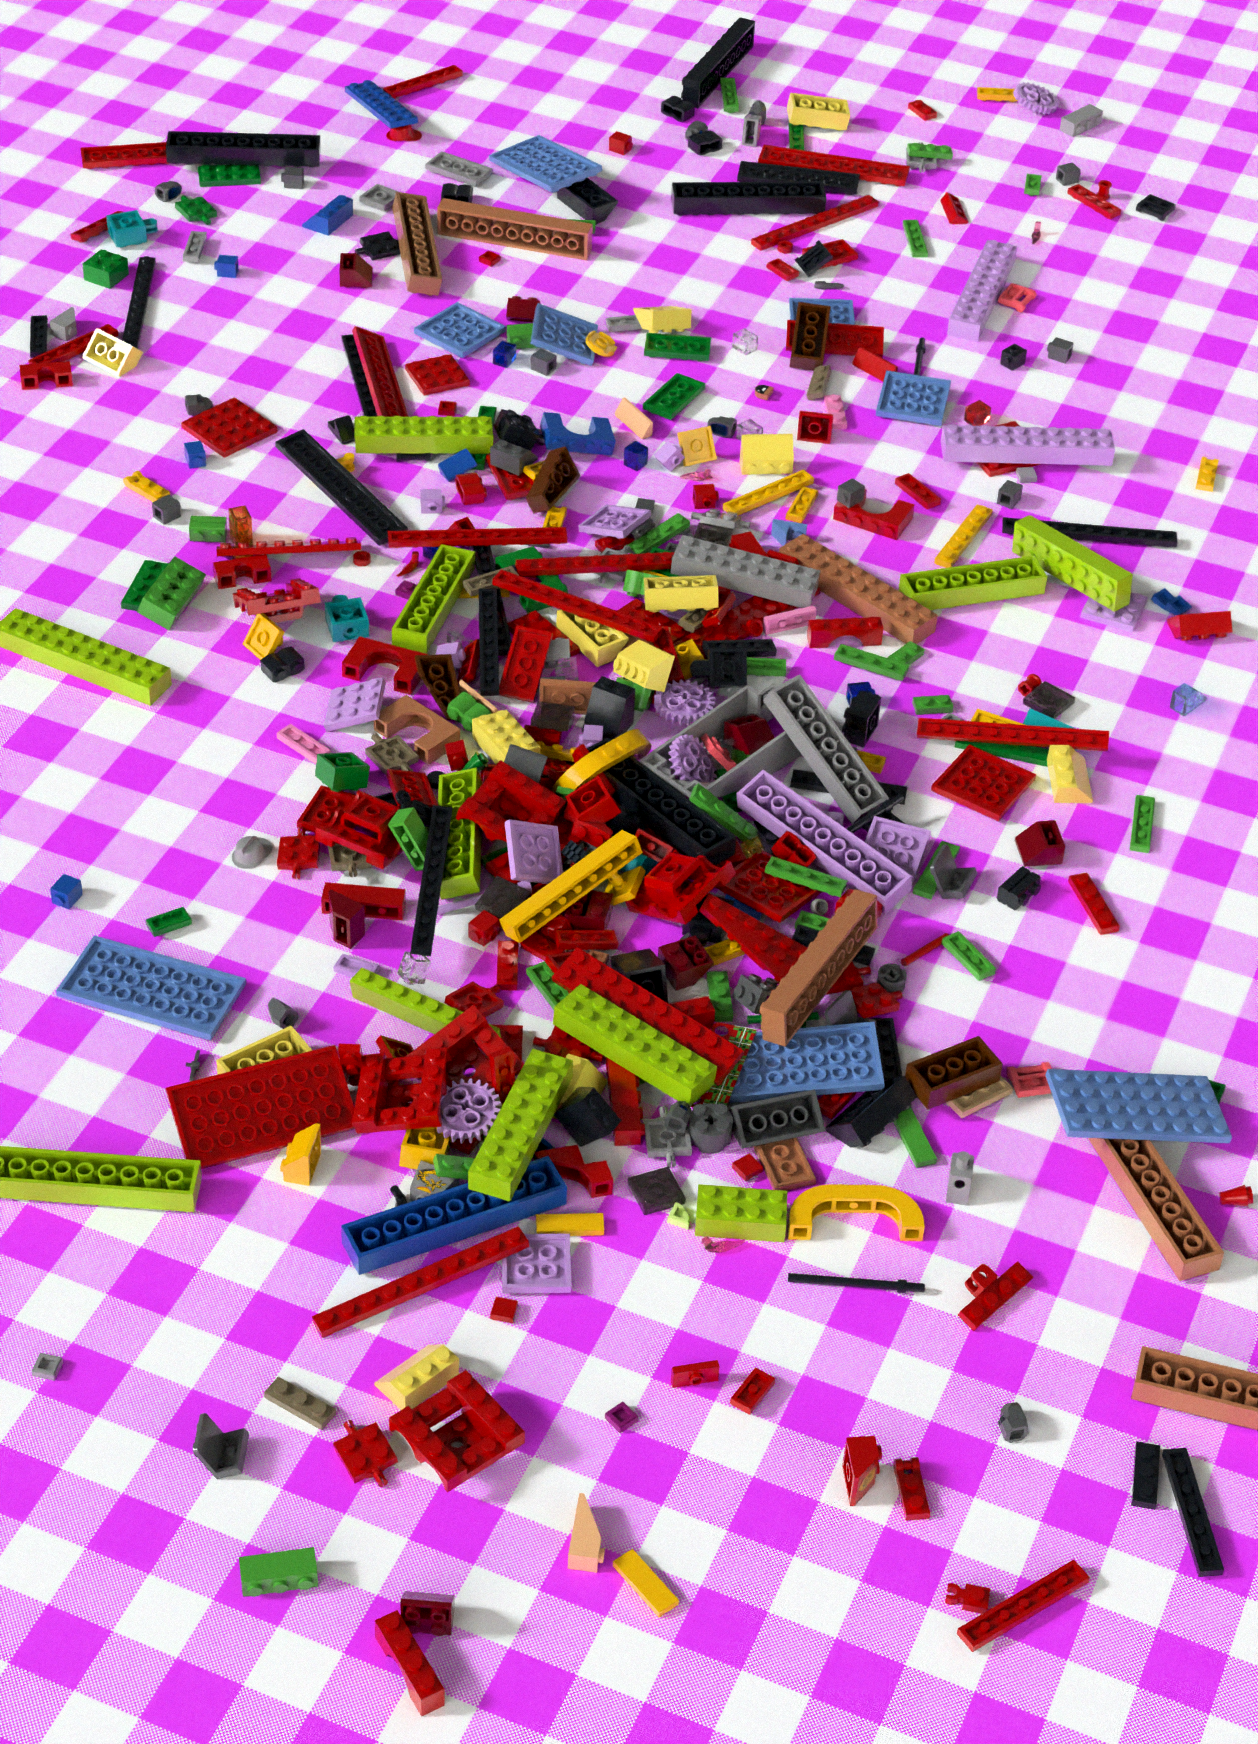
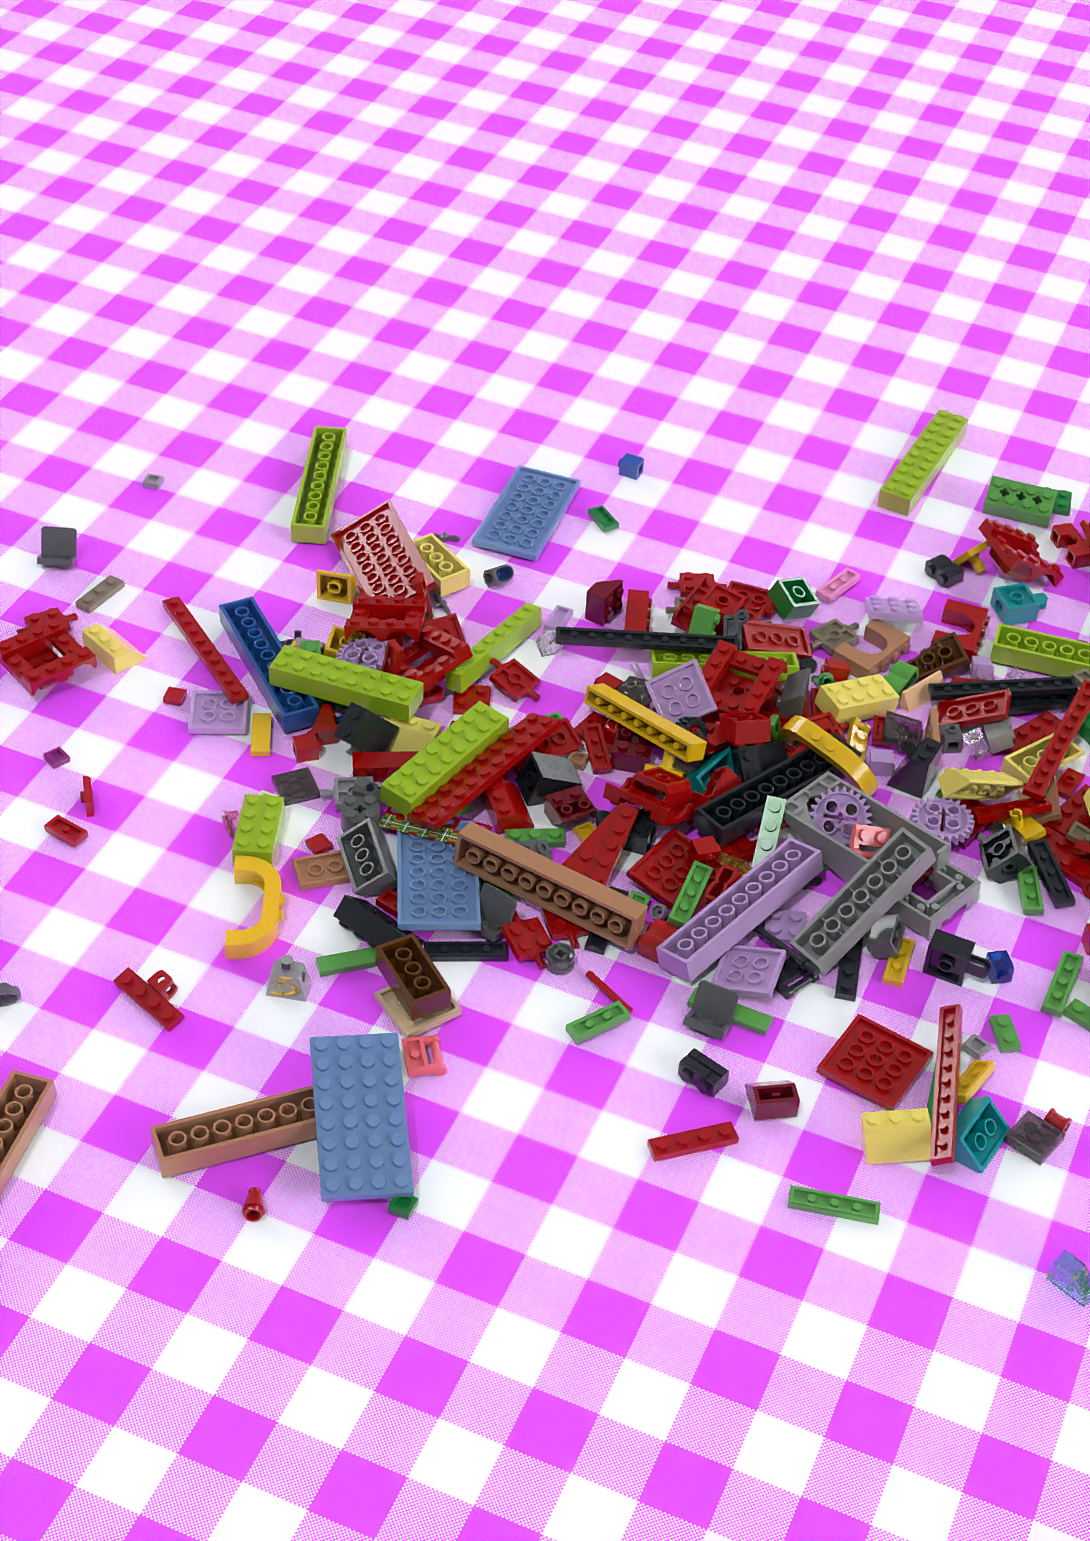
camera: 90 degrees right, 0 degrees up
(251, 851) = (696, 560): light grey piece -> none
(507, 965) = (564, 705): red plate -> none
(751, 860) = (704, 850): none -> red brick
(900, 1285) = (169, 933): black bar -> none

